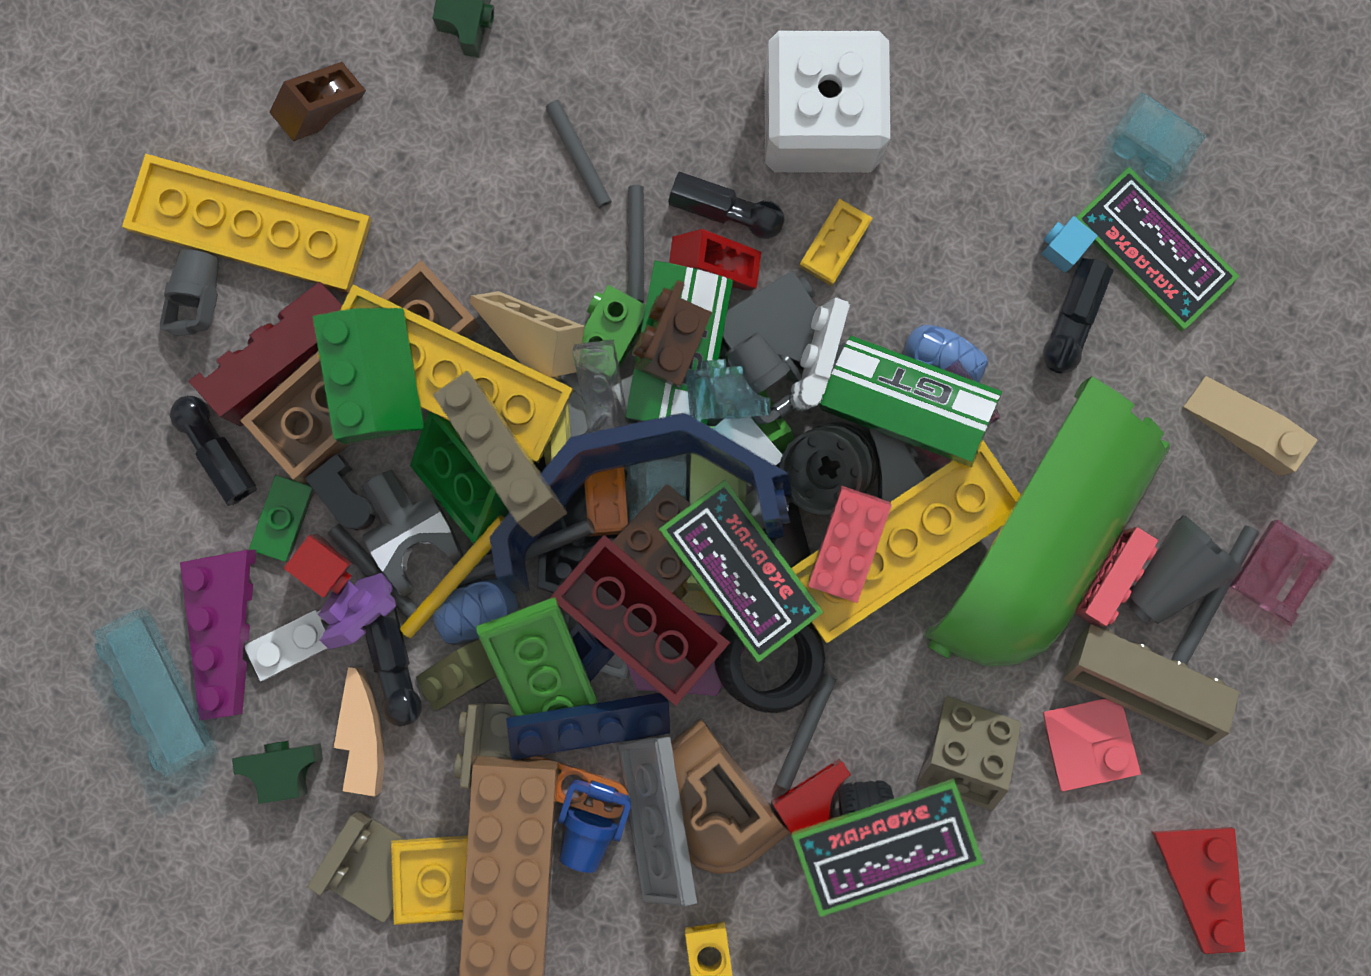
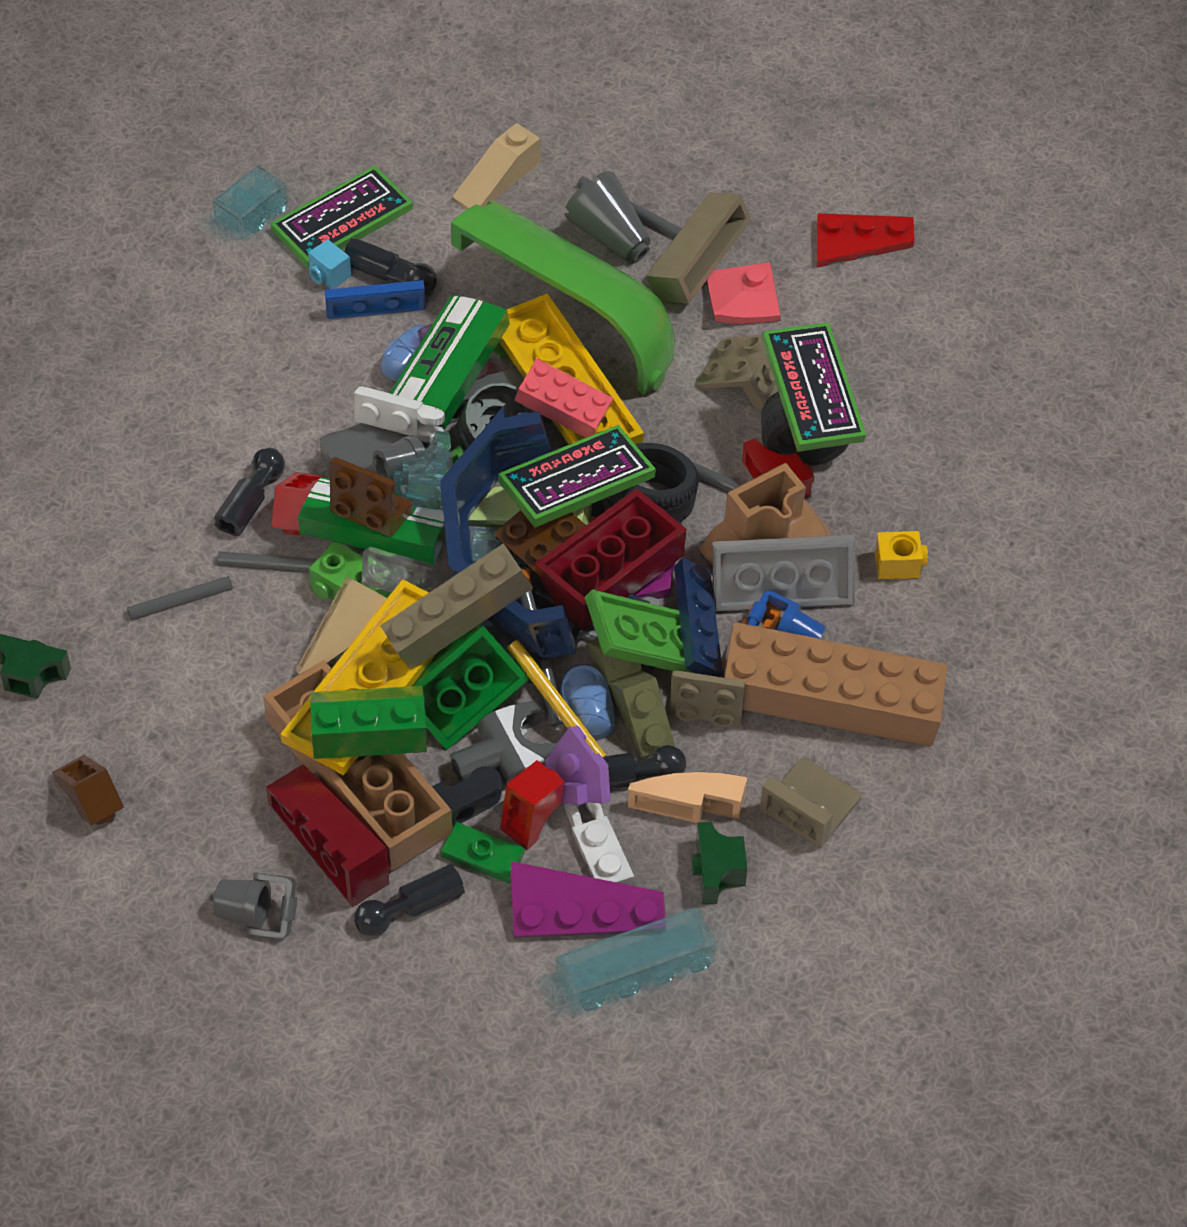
camera: 85 degrees left, 30 degrees down
(247, 223) = (192, 859): yellow plate -> none
(428, 879) = (825, 753): yellow tile -> none
(821, 132) = (177, 401): white plate -> none
(835, 242) = (297, 419): yellow plate -> none
(1021, 305) = (375, 299): none -> blue tile
(1117, 576) = (611, 252): coral piece -> none
(1271, 566) = (600, 159): clear pink plate -> none

